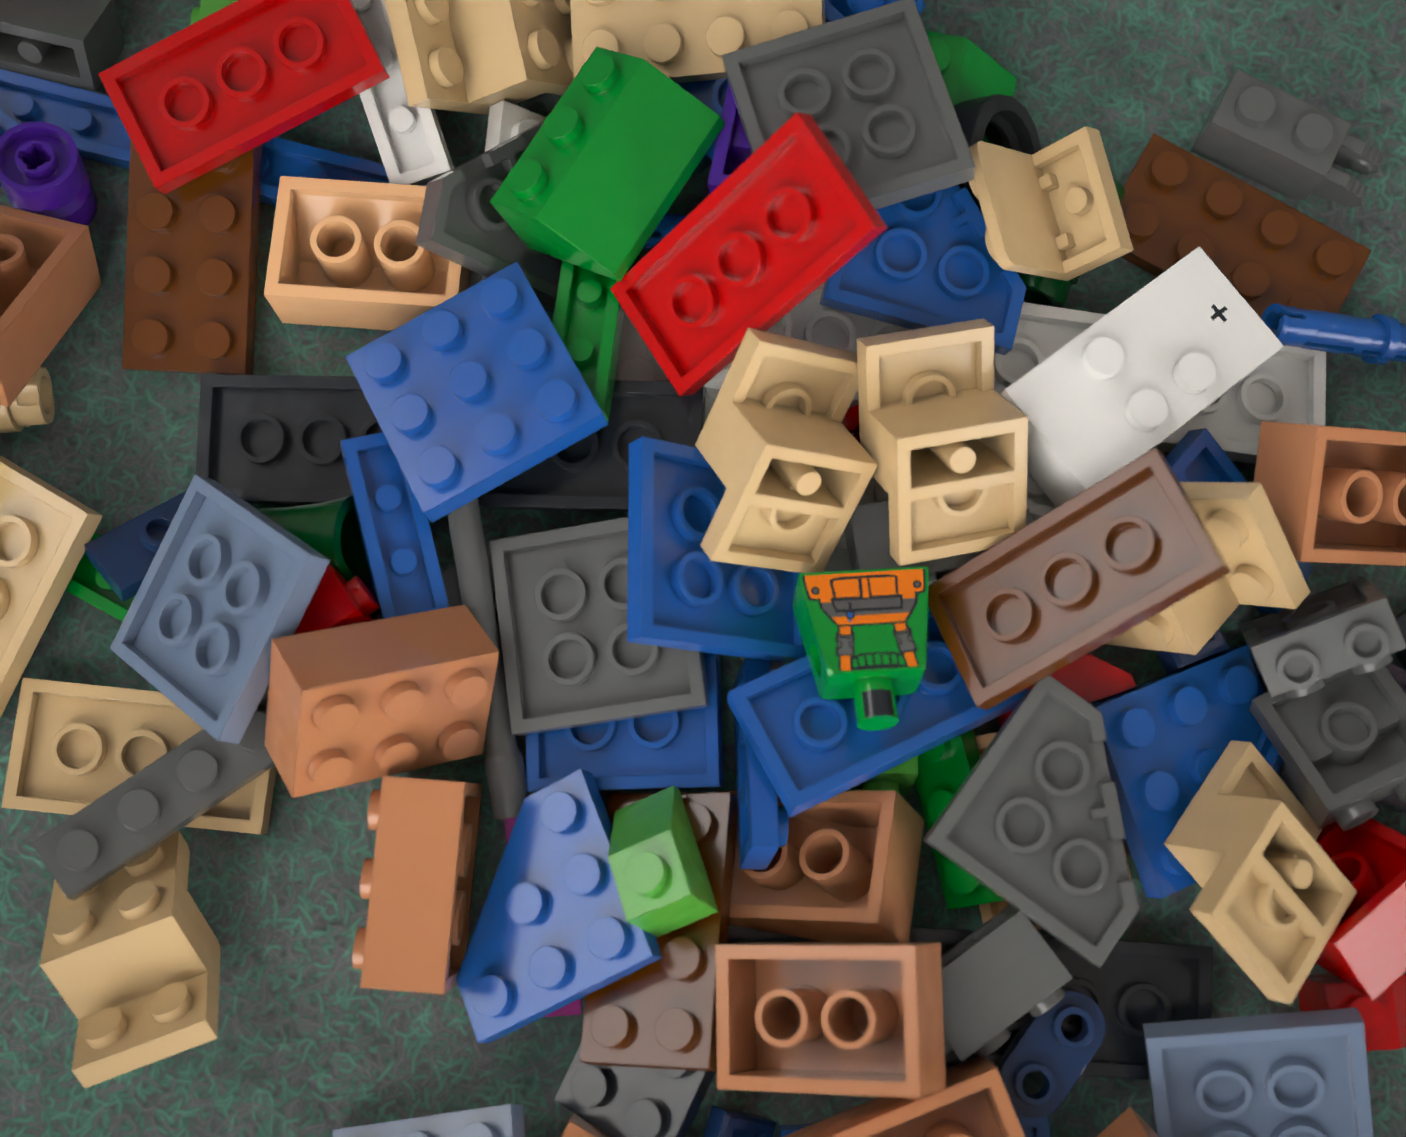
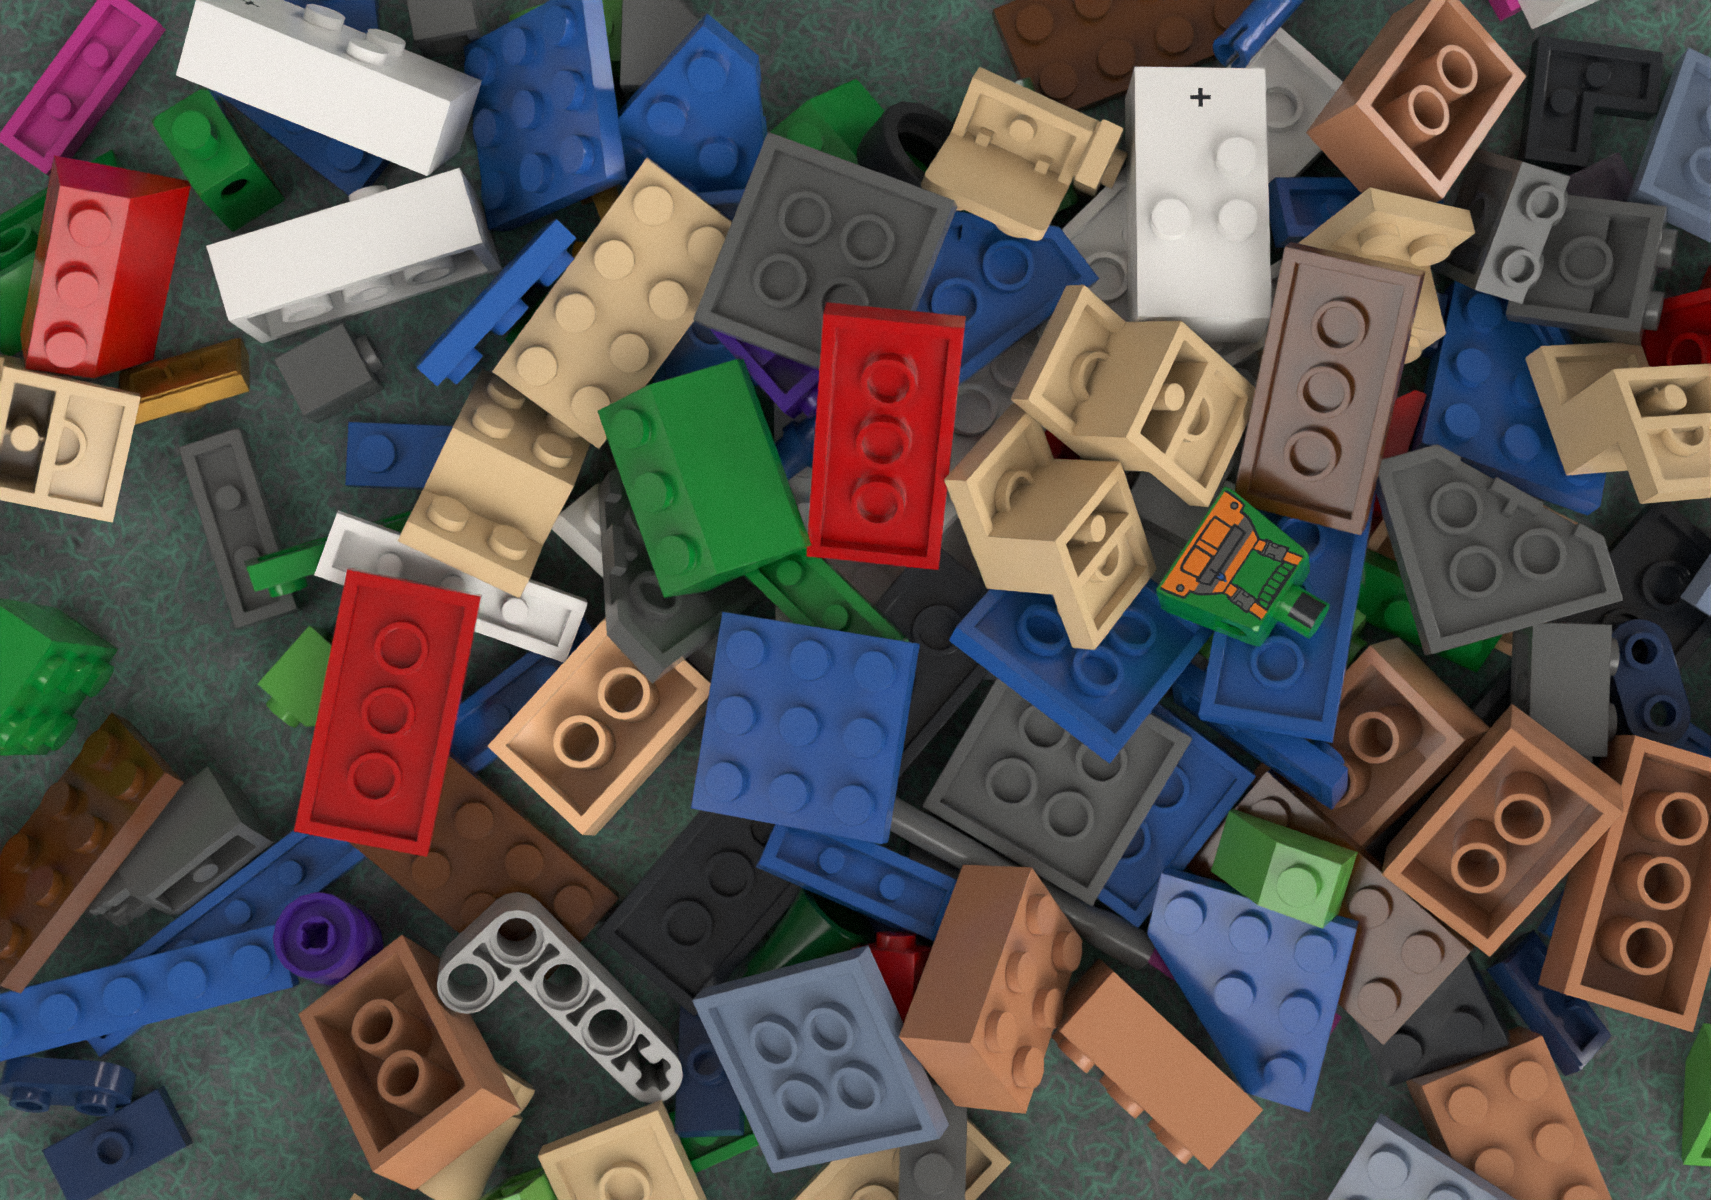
camera: 55 degrees left, 5 degrees up
(123, 392) = (568, 1004): none -> light grey beam
(1104, 281) = (1100, 160): none -> tan plate

